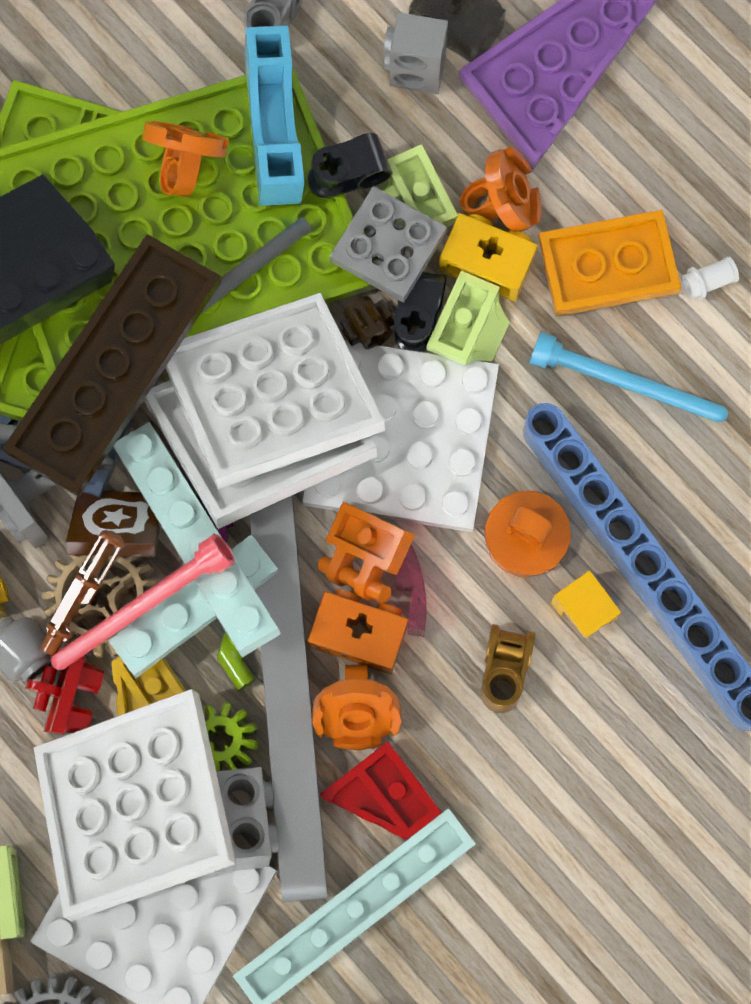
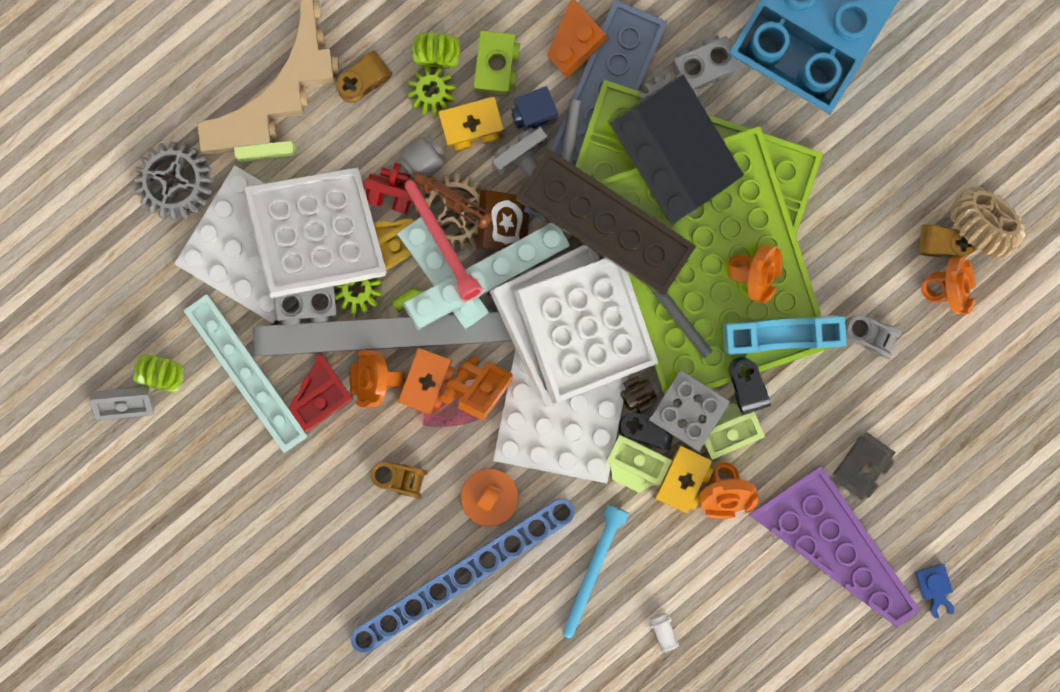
camera: 85 degrees right, 10 degrees up
(416, 52) = (831, 435): light grey brick -> none
(586, 604) = (436, 533): yellow panel -> none
(609, 263) = (677, 563): light orange plate -> none

